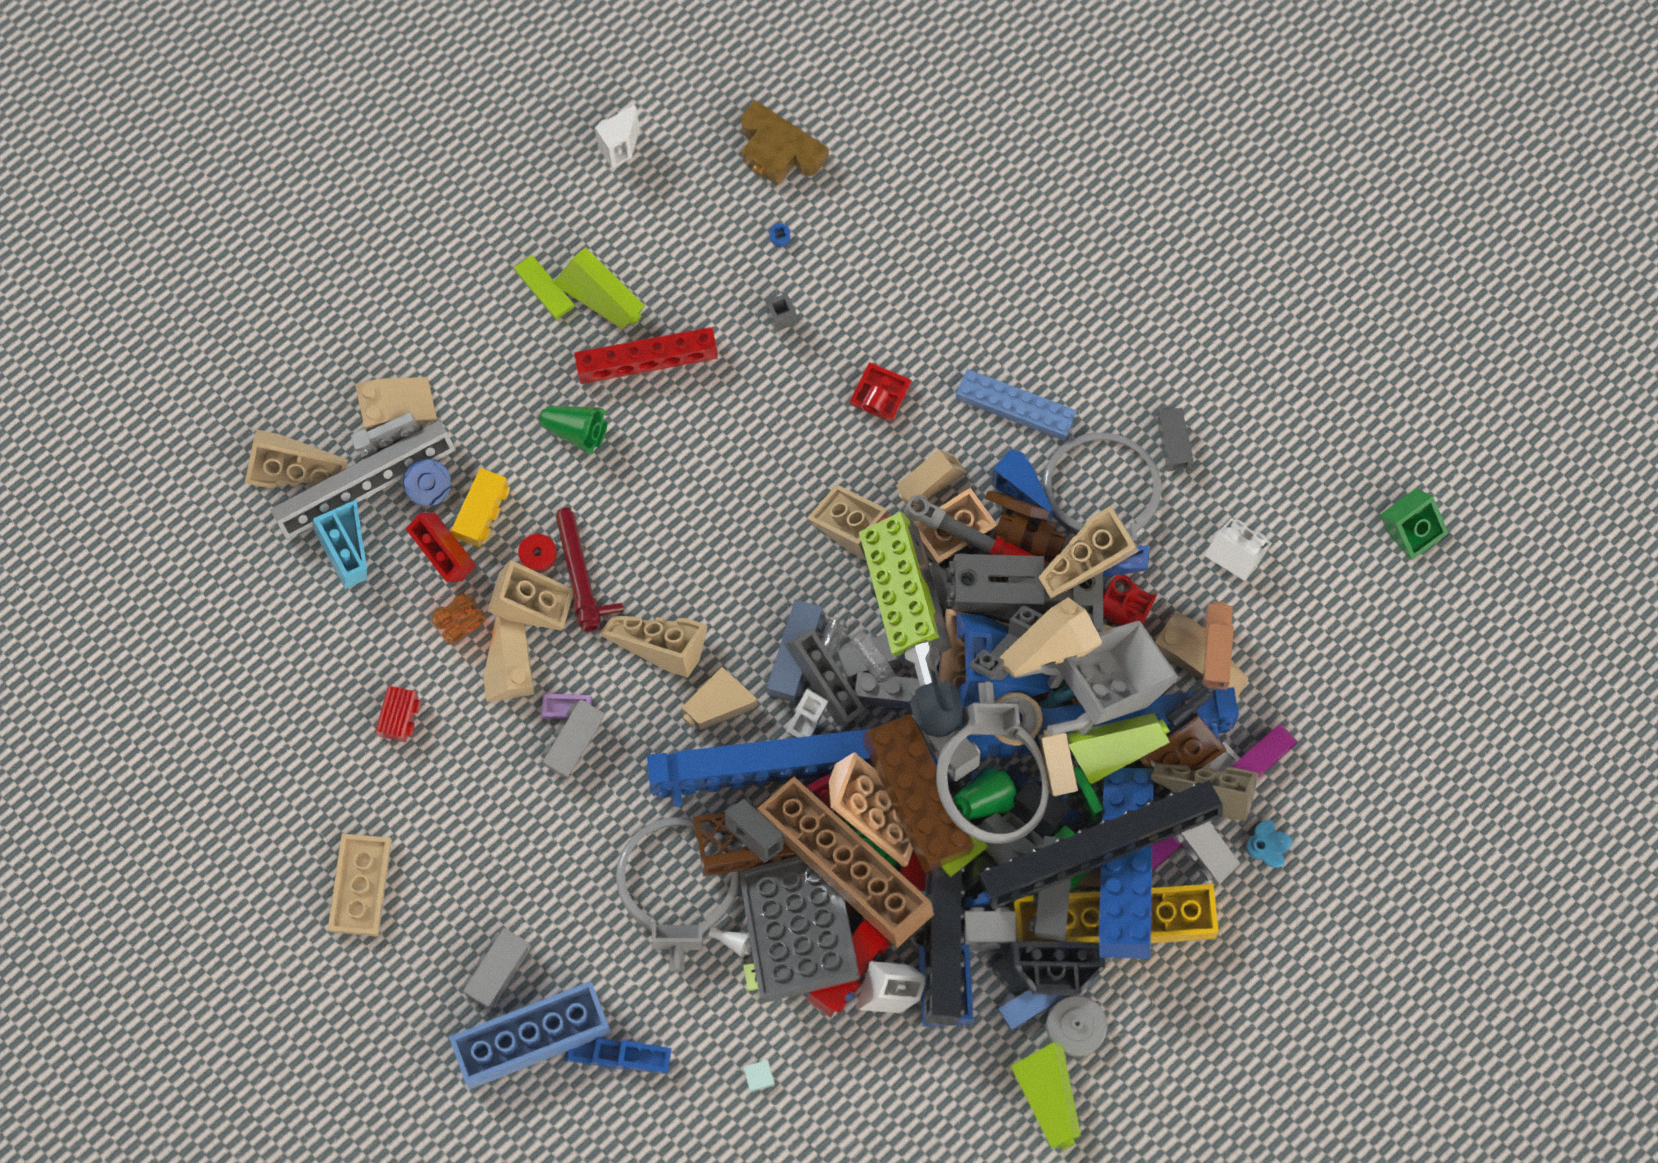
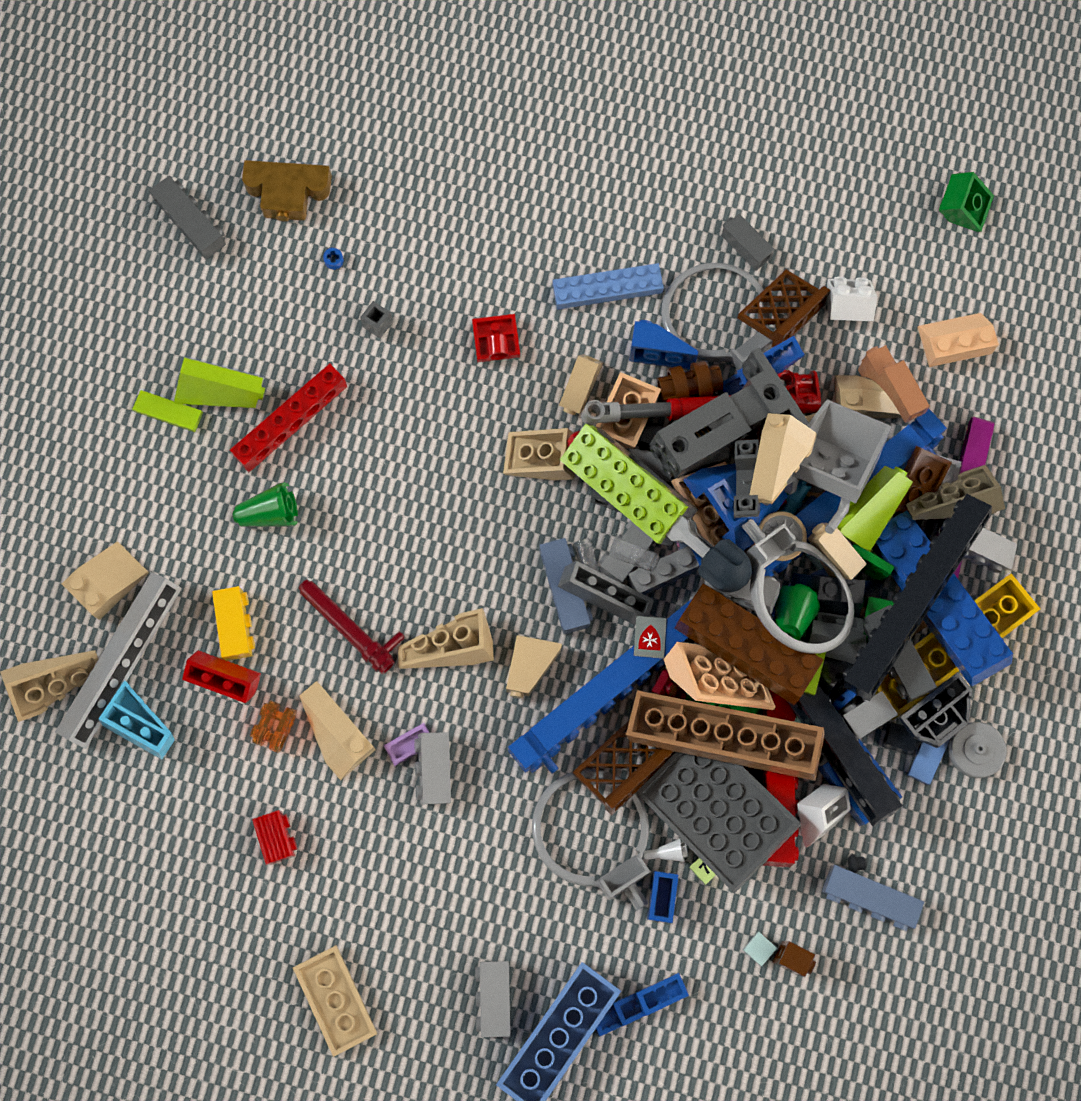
camera: 35 degrees left, 5 degrees up
(383, 436) = (113, 612): light grey plate -> none
(427, 482) = (174, 629): tile -> none
(530, 598) = (322, 673): tan slope -> none
(533, 543) = (300, 622): red piece -> none
(618, 136) = (150, 252): white slope -> none
(672, 122) = (187, 216): none -> dark grey brick
(700, 973) = (662, 897): none -> blue brick
(753, 830) = (631, 753): dark grey brick -> none
(781, 1099) = (794, 959): none -> reddish brown brick
(808, 714) = (610, 632): white slope -> none
(836, 736) = (650, 637): none -> light grey sticker
(890, 1094) = (872, 897): none -> sand blue brick
(896, 1057) = (856, 863): none -> black piece
(1017, 505) = (666, 364): reddish brown tile -> none
(1050, 1095) = (993, 817): lime slope -> none
(1093, 550) = (763, 364): tan wedge -> none
(1172, 534) = (797, 316): none -> reddish brown fence
(1189, 706) = (908, 444): black pin -> none
(1272, 844) = (1025, 513): dark azure plate -> none
(1316, 645) = (958, 339): none -> light nougat slope

